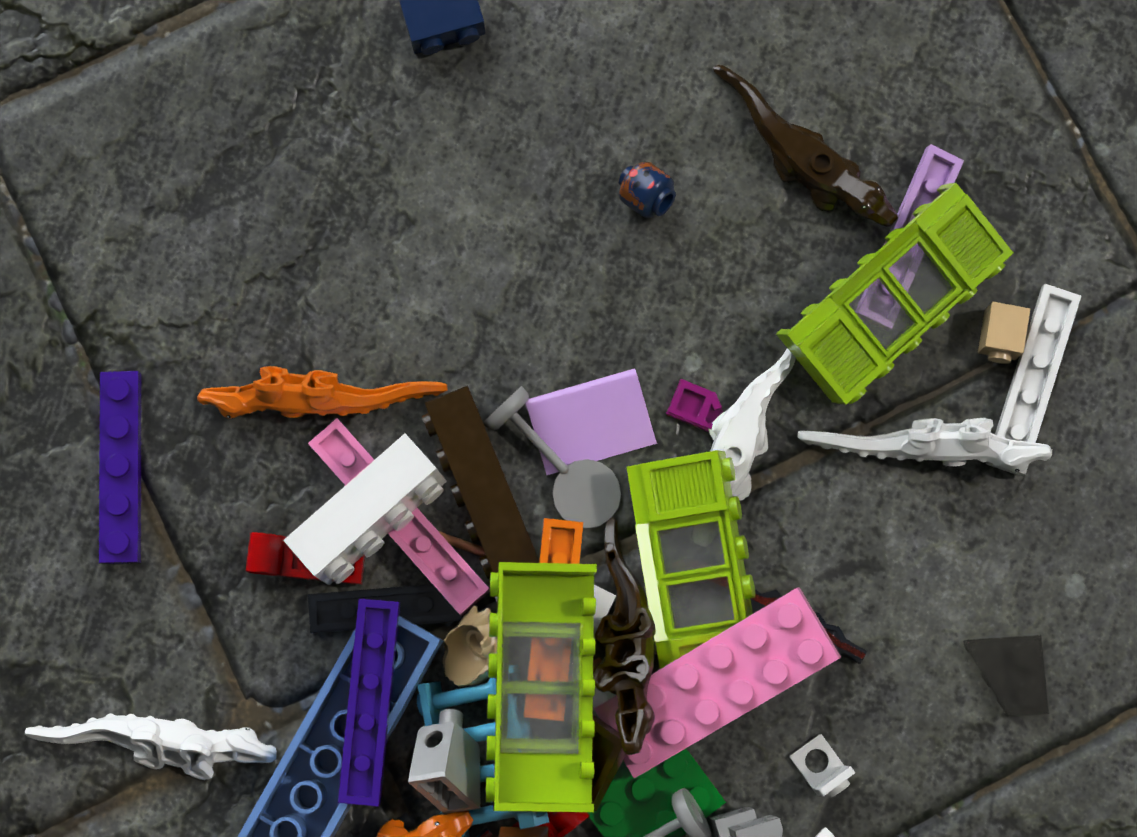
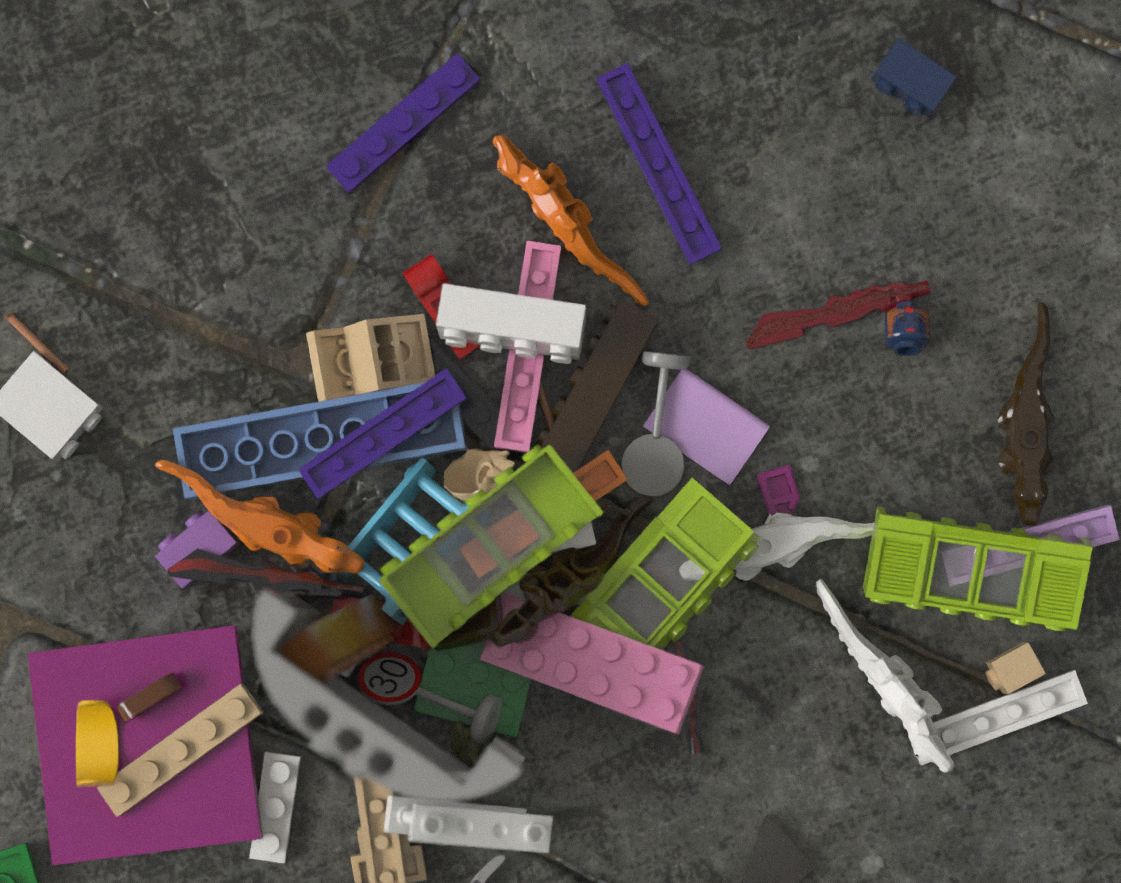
camera: 50 degrees right, 5 degrees up
(164, 742) = (241, 315): white animal -> none
(293, 658) = (370, 356): none -> tan bracket
(337, 281) = (658, 164): none -> dark purple plate
(447, 764) = (384, 522): light grey torso -> none
(584, 235) = (838, 310): none -> dark red sword
(833, 778) = (592, 798): white bracket -> none

